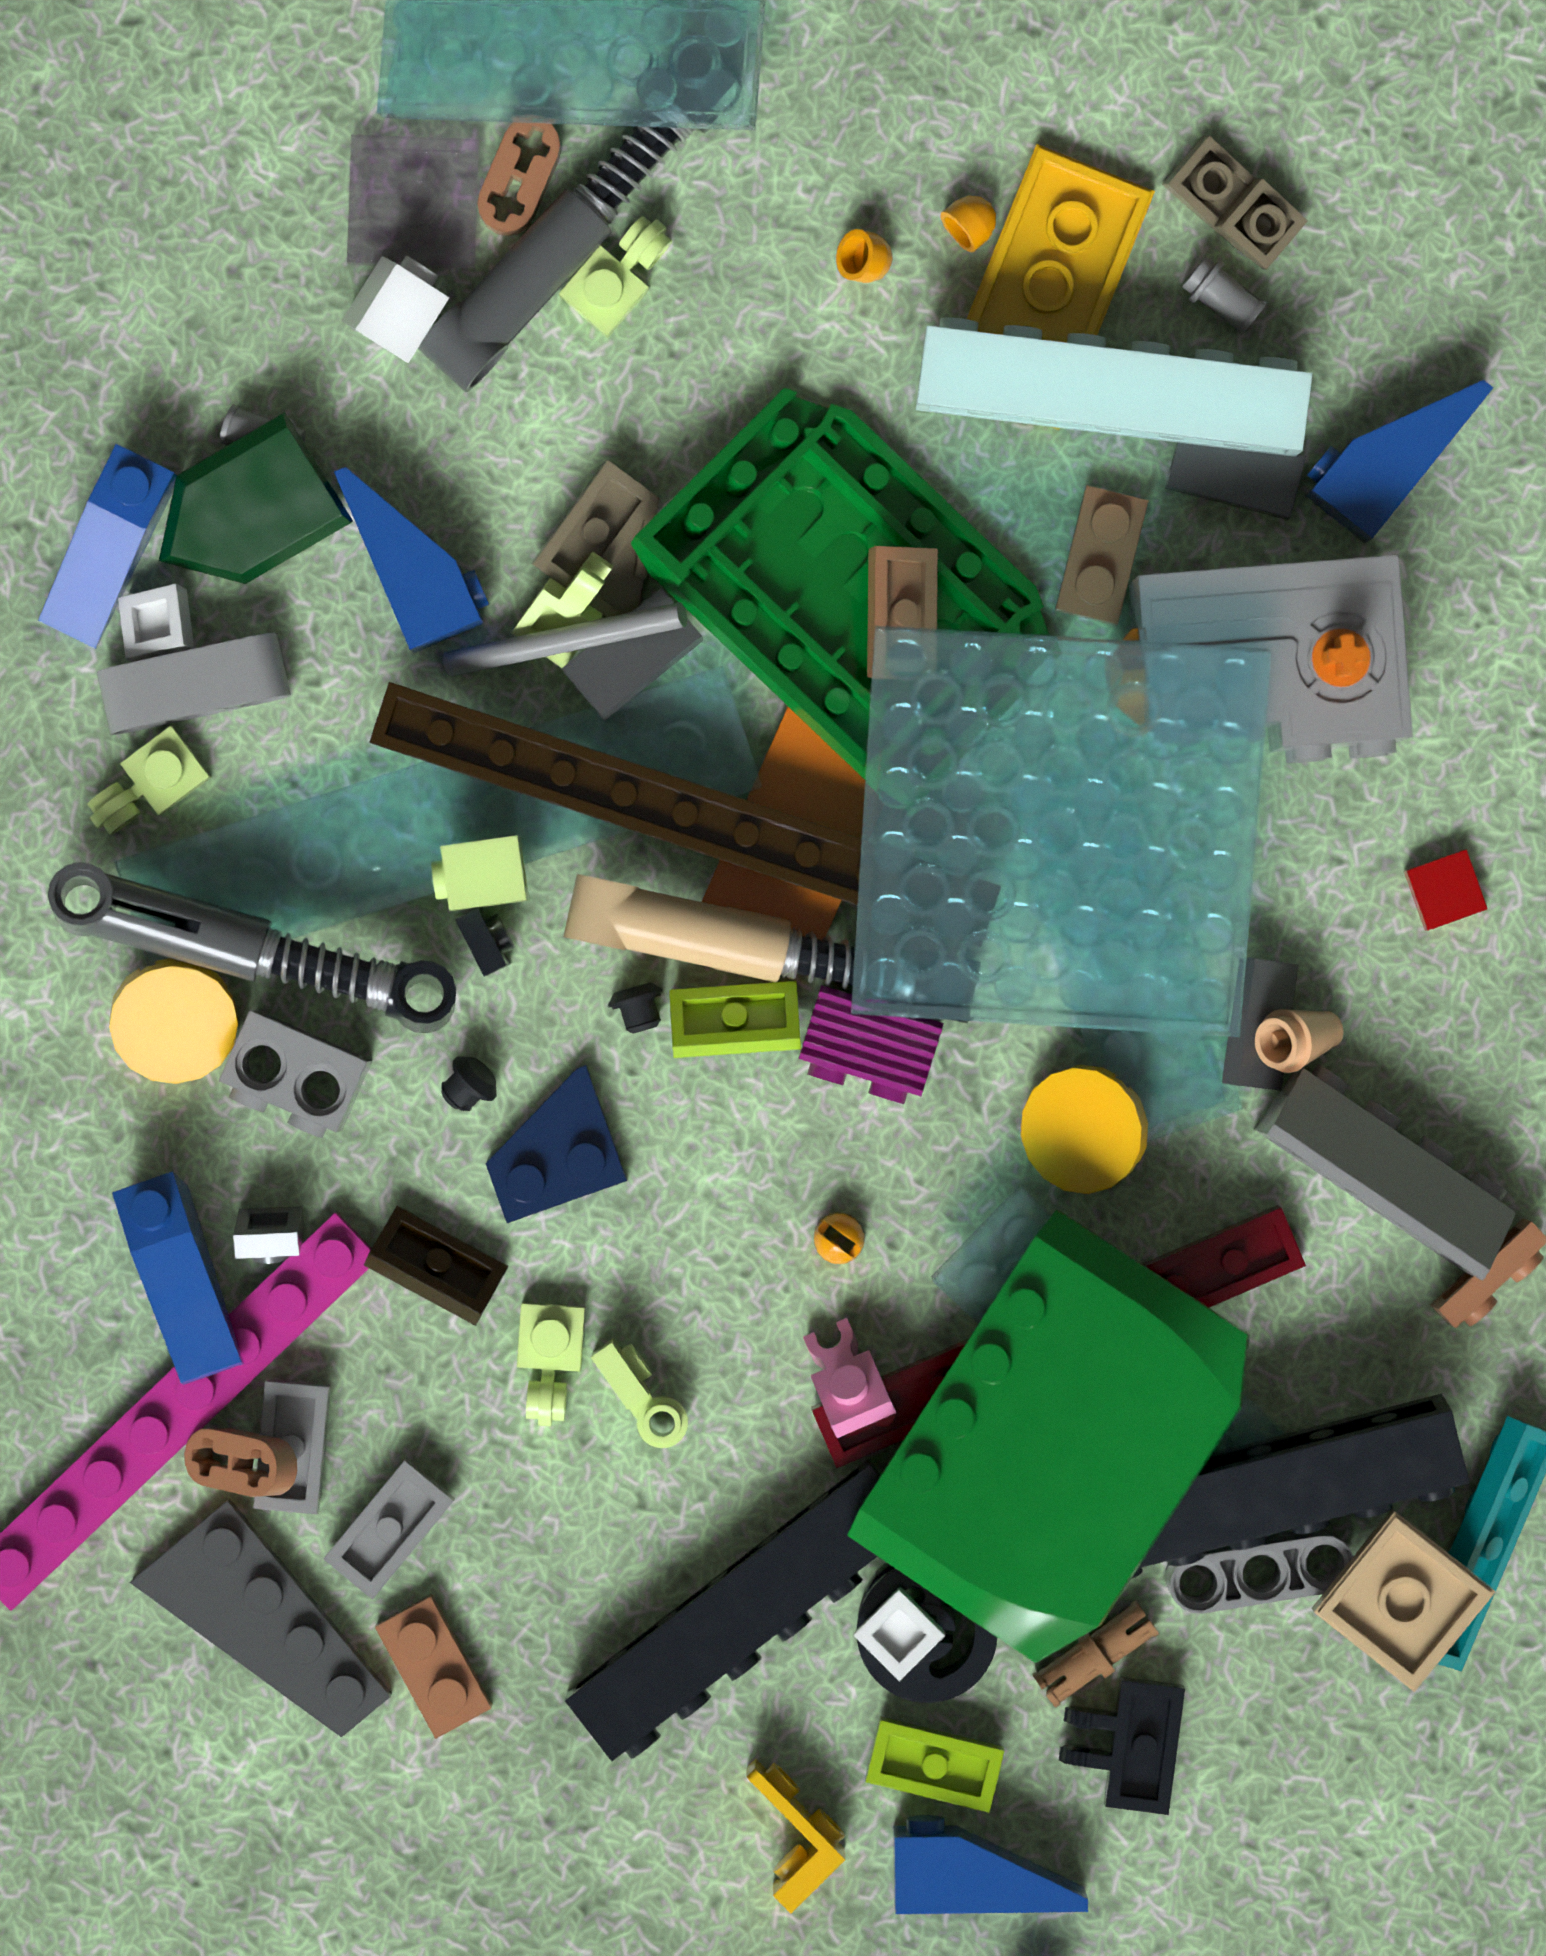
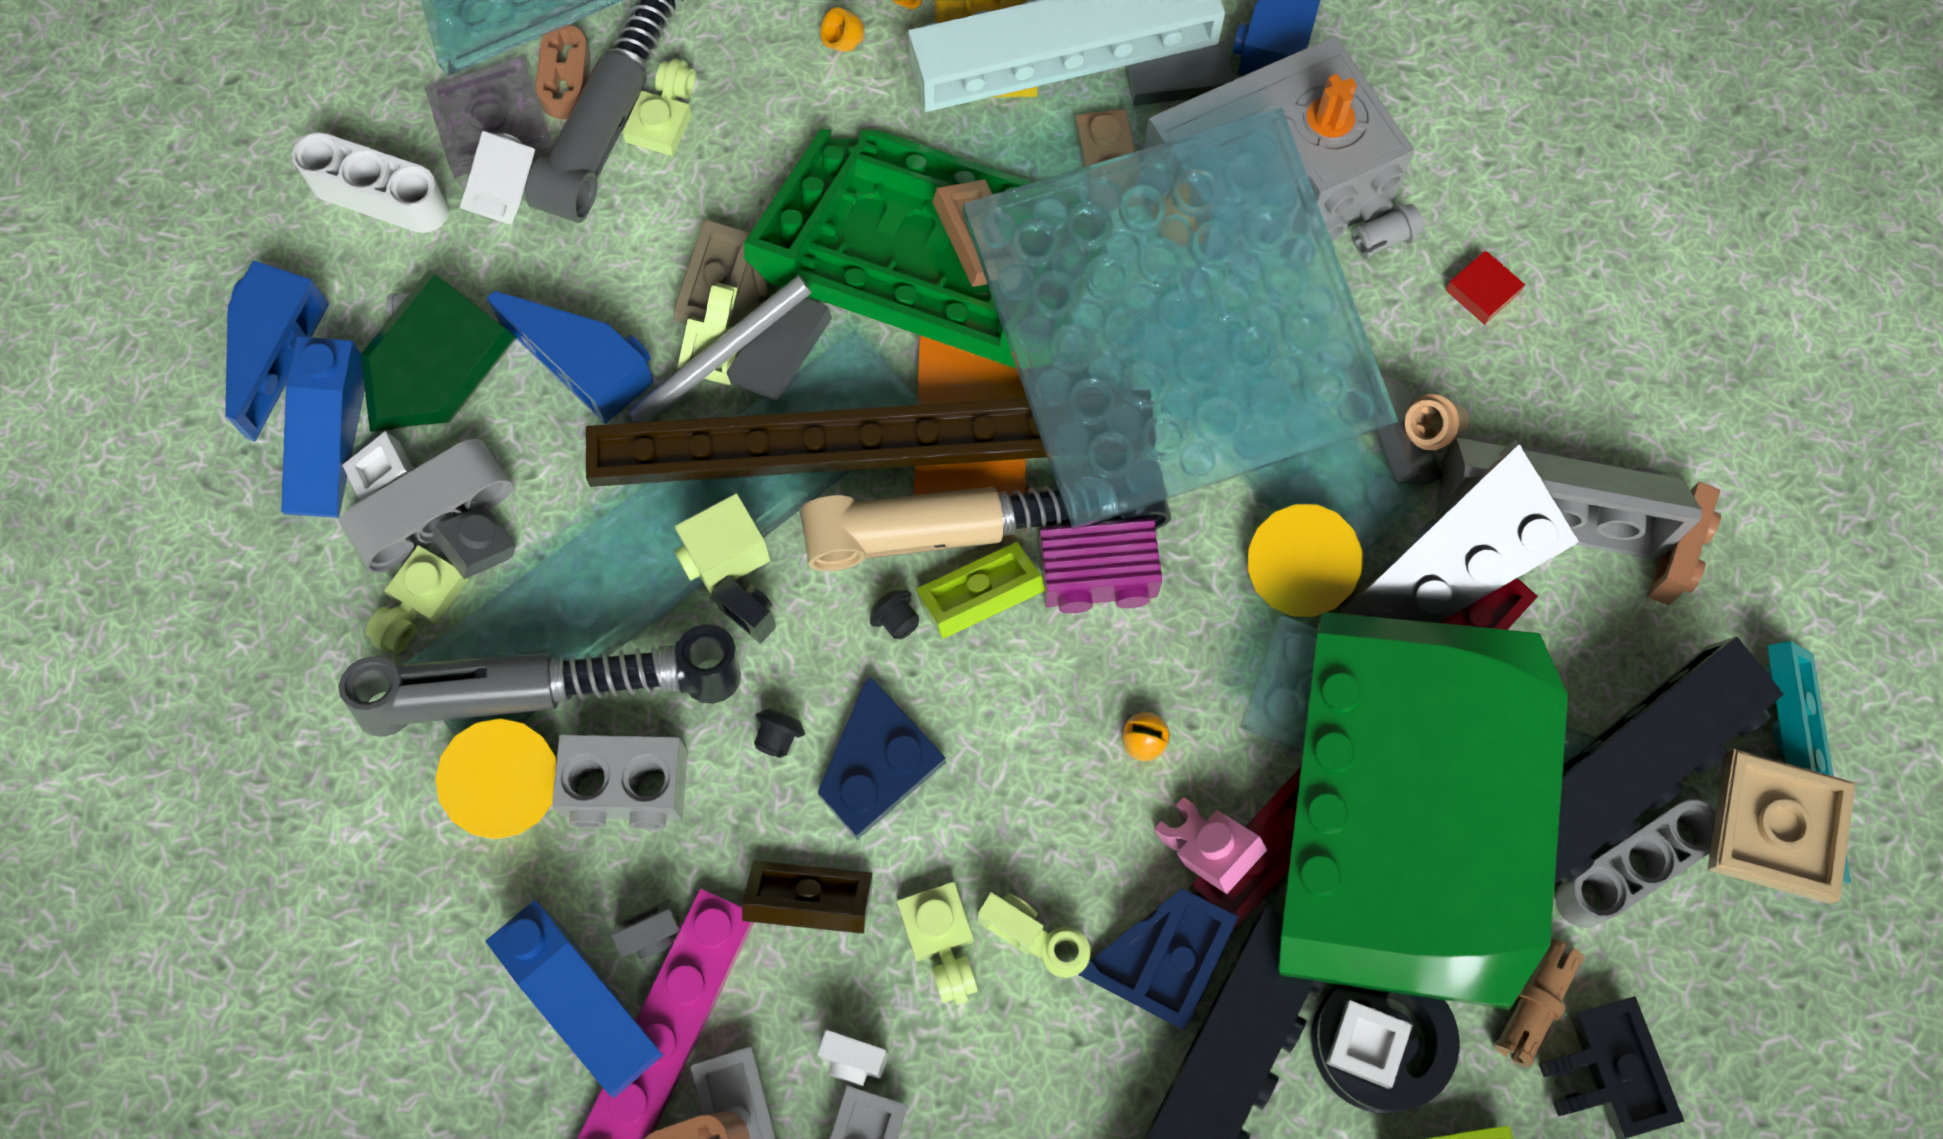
camera: 20 degrees left, 20 degrees down
(81, 404) = (262, 327): none -> blue slope
(230, 745) = (474, 541): none -> dark grey plate
(231, 227) = (370, 182): none -> white beam
(419, 1437) = (851, 1058): none -> white plate
(756, 1466) = (1166, 957): none -> dark blue wing
(1248, 1205) = (1477, 545): none -> wing
(1370, 779) = (1388, 230): none -> light grey pin

